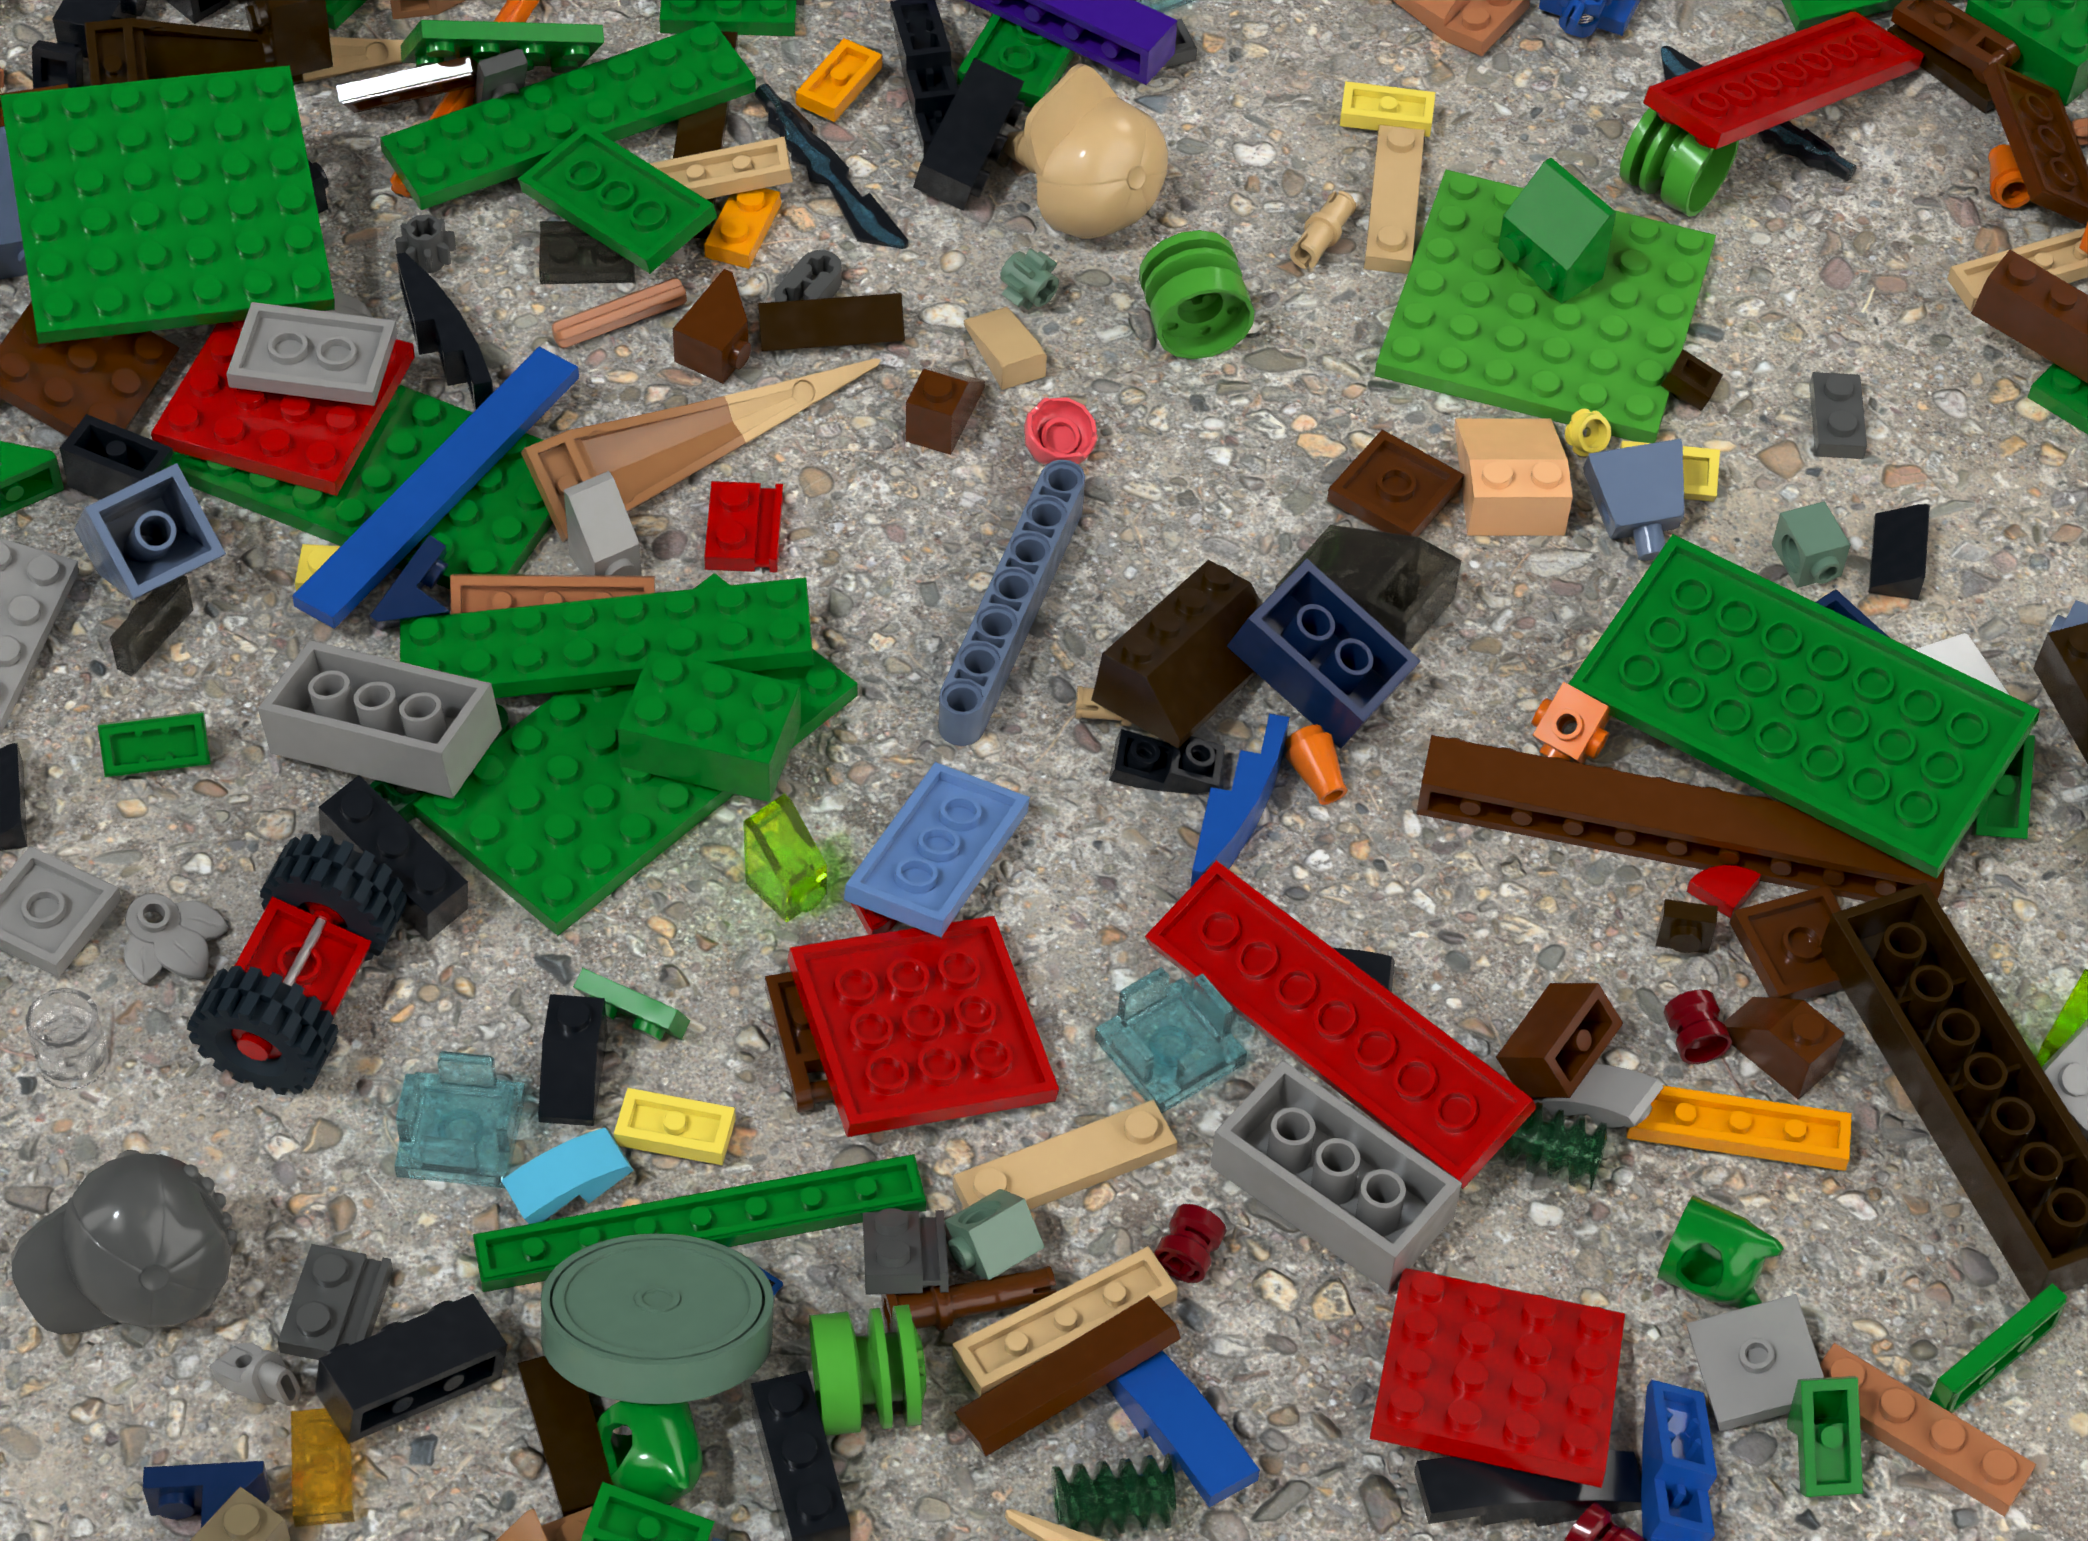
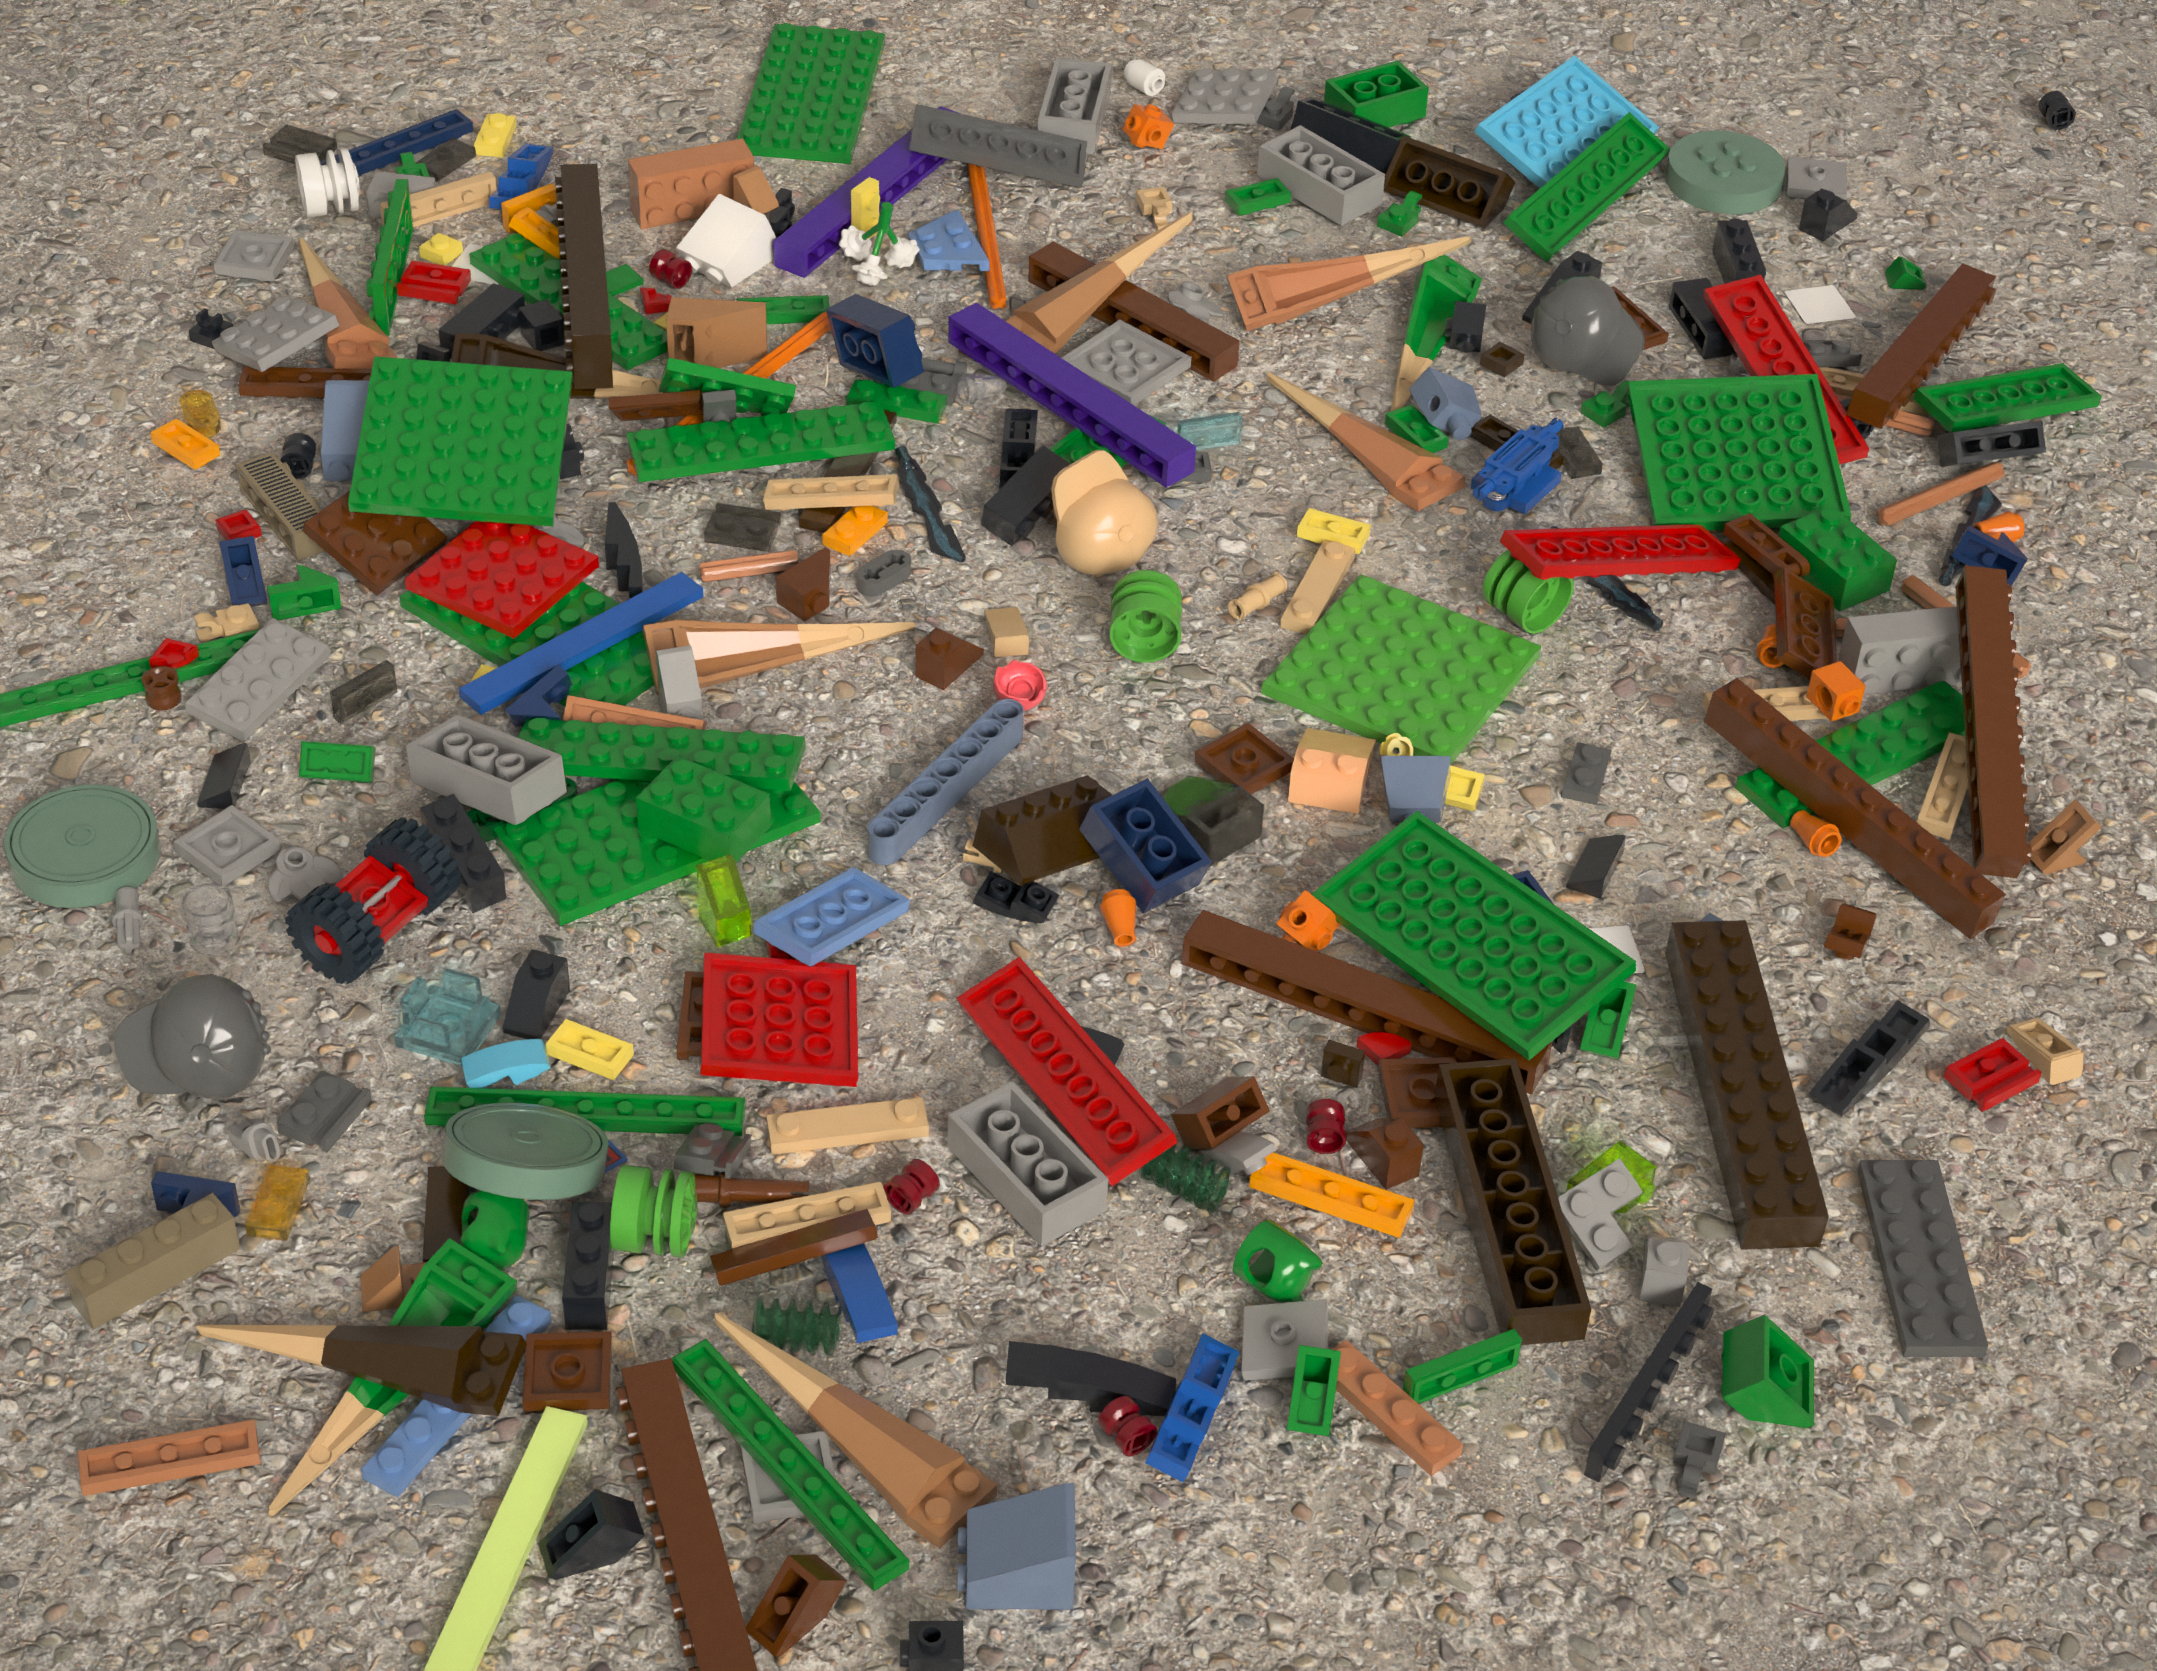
camera: 15 degrees right, 10 degrees down
(108, 458) = (371, 589): black slope -> none
(148, 534) = (375, 629): sand blue slope -> none
(312, 353) = (525, 546): light grey plate -> none
(410, 1367) = (354, 1151): black brick -> none
(426, 242) = (635, 502): dark grey gear -> none
(617, 198) = (770, 493): green plate -> none
(650, 1015) = (597, 979): plate -> none
(743, 526) = (782, 706): red plate -> none
(831, 322) = (889, 594): dark brown tile -> none
(839, 79) = (955, 452): light orange plate -> none
(993, 1234) = (775, 1152): sand green brick -> none
(1029, 279) = (1036, 590): sand green gear -> none
(1171, 1037) = (949, 1063): clear light blue panel -> none
(1235, 813) = (1050, 936): blue slope -> none
(1500, 1377) = (1092, 1306): red plate -> none
(1558, 232) = (1415, 618): green slope -> none
(1691, 380) = (1485, 731): dark brown plate -> none
(1811, 544) = (1531, 846): sand green brick -> none

